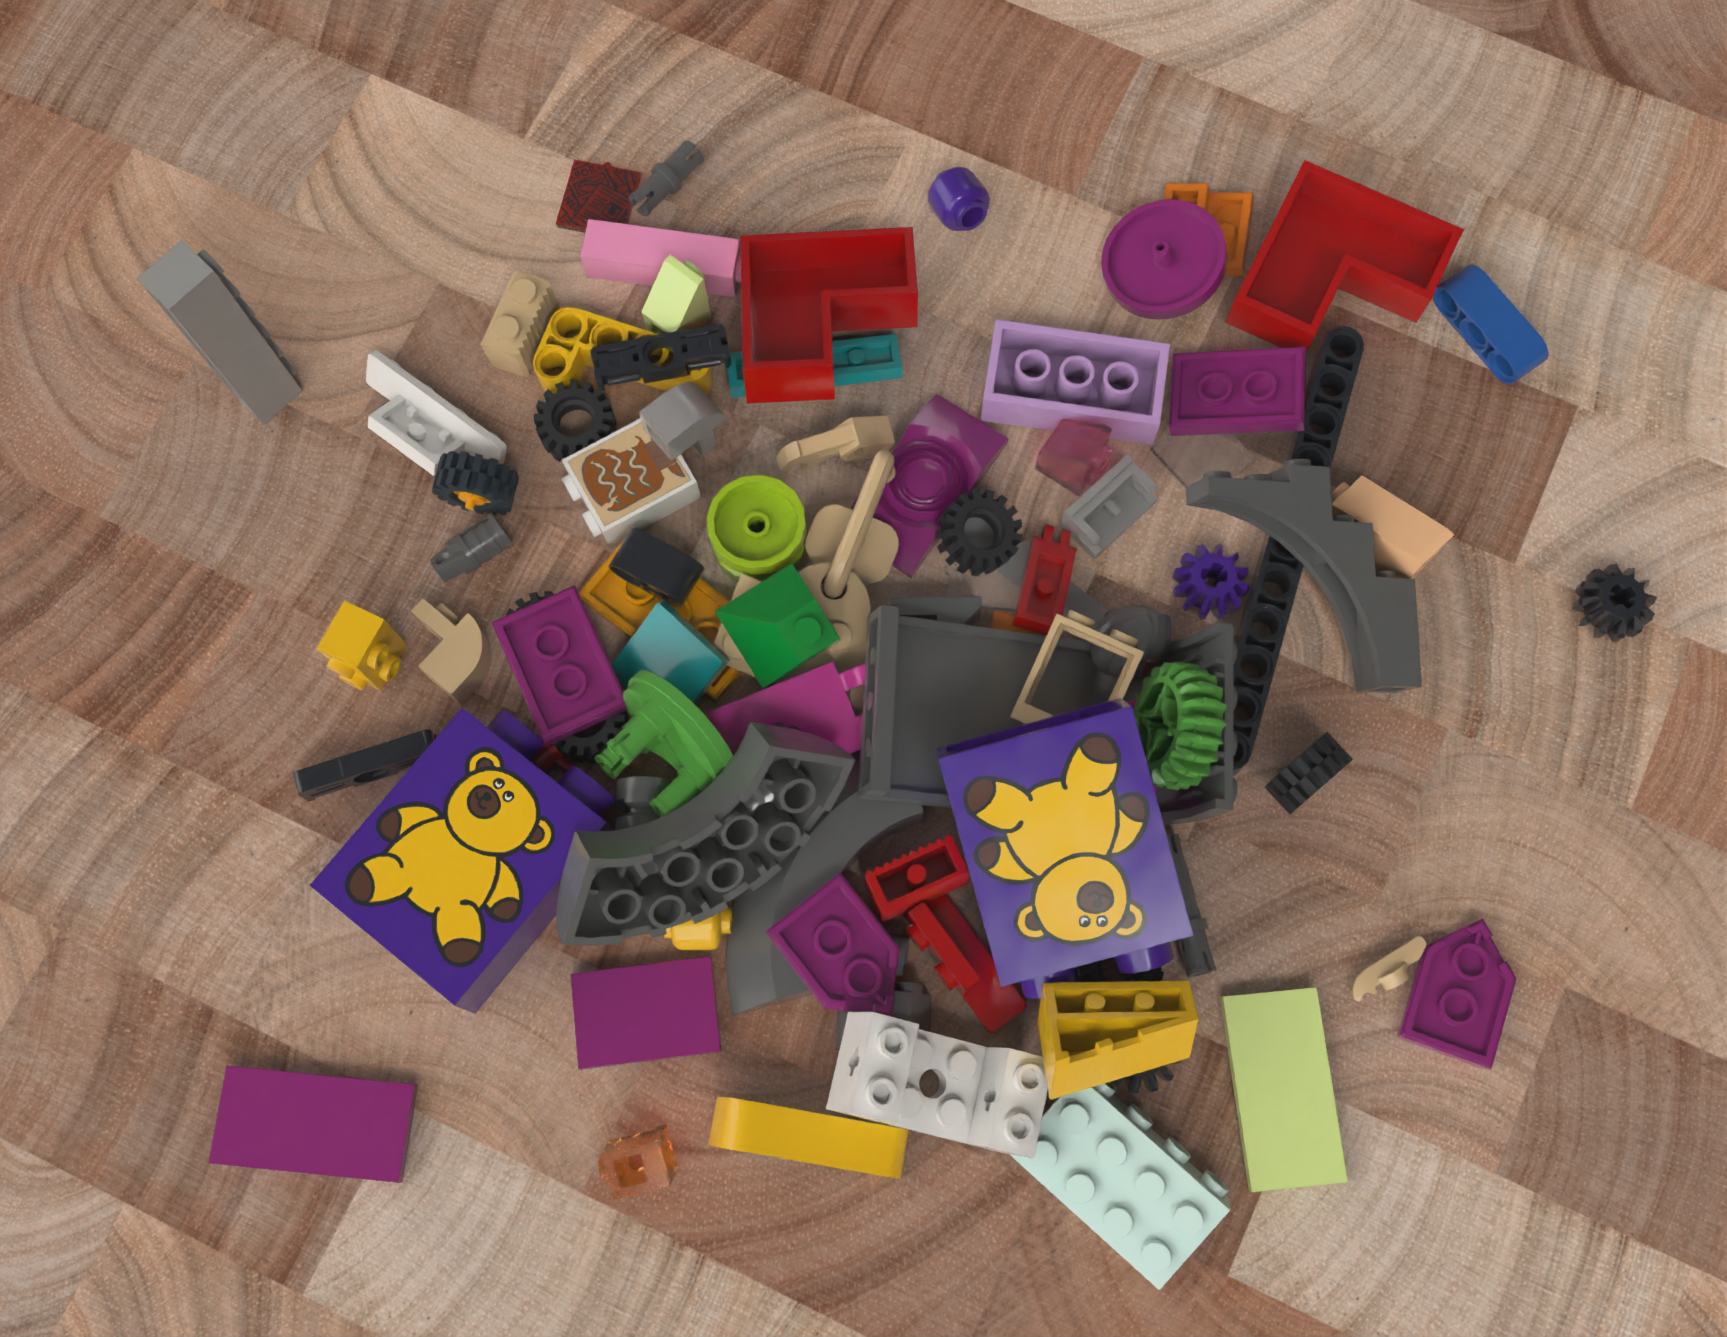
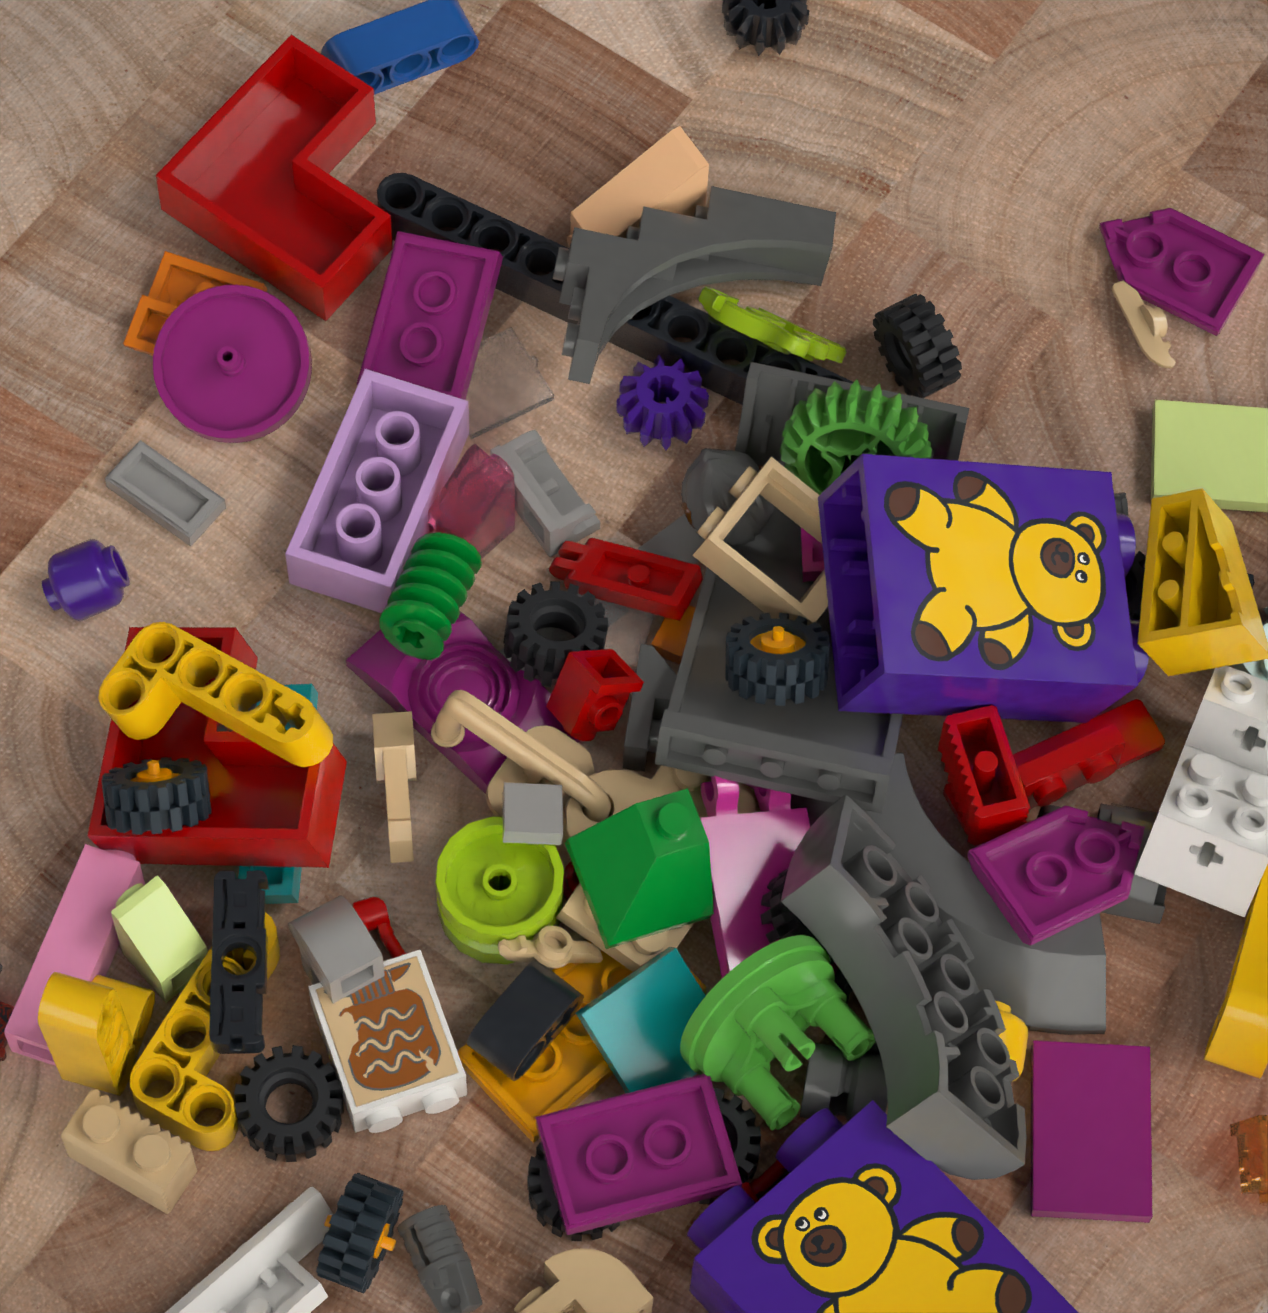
camera: 85 degrees left, 10 degrees down
(580, 269) = (94, 1028): none -> yellow beam
(712, 572) = (551, 948): none -> tan piece
(732, 454) = (375, 917): none -> red hand
(776, 271) = (156, 795): none -> black wheel
(806, 532) = (532, 813): none -> light grey tile
(864, 261) = (227, 699): none -> yellow beam
(920, 572) = (592, 692): none -> red brick
(971, 691) = (777, 658): none -> black wheel
(988, 430) = (429, 594): none -> green piece
(1049, 241) = (165, 493): none -> light grey tile
(1291, 653) = (769, 328): none -> lime tile

